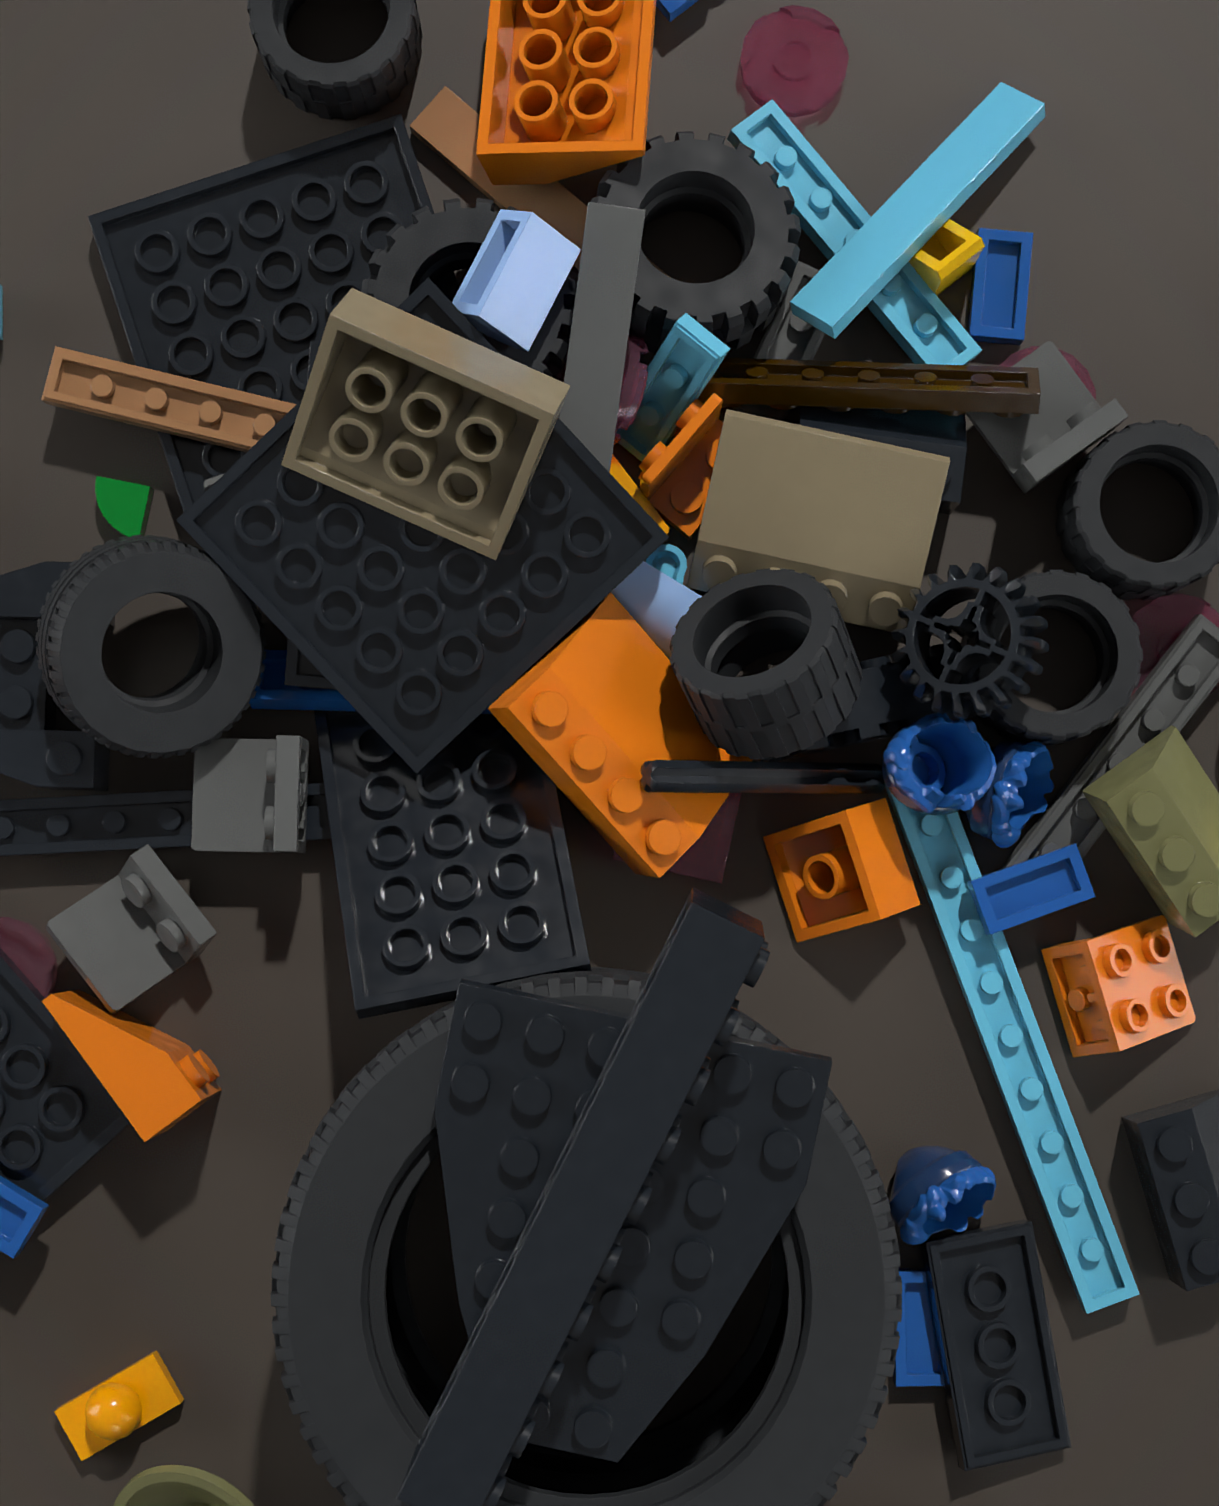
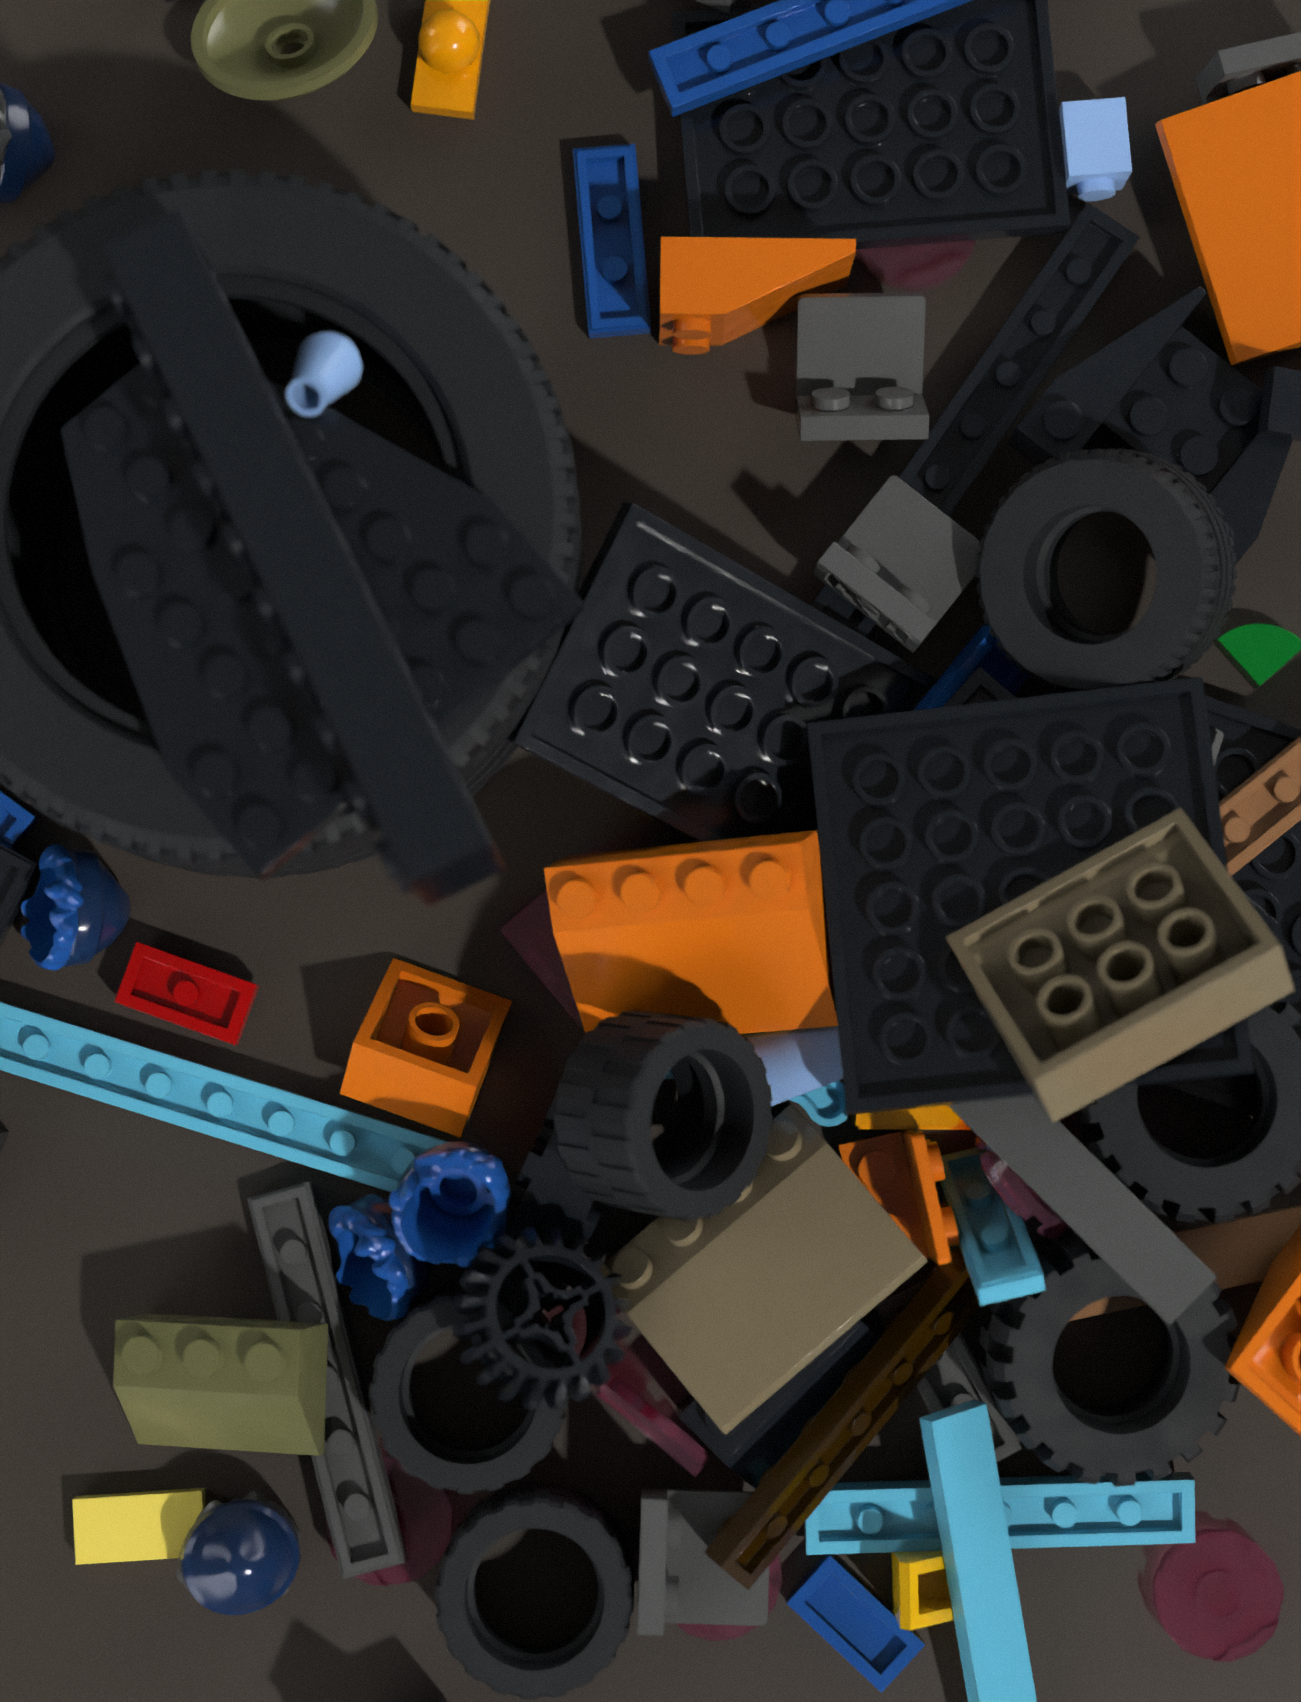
camera: 125 degrees right, 0 degrees up
(171, 1181) = (612, 241): none -> blue tile
(431, 1302) = (323, 371): none -> light blue cone
(515, 278) = (1195, 1154): light blue brick -> none
(761, 777) = (565, 1032): black axle -> none
(933, 1066) = (187, 993): none -> red plate
(978, 513) = (653, 1425): none -> clear pink tile
(1030, 889) = (275, 1205): blue tile -> none
(1119, 987) = (124, 1219): orange bracket -> none

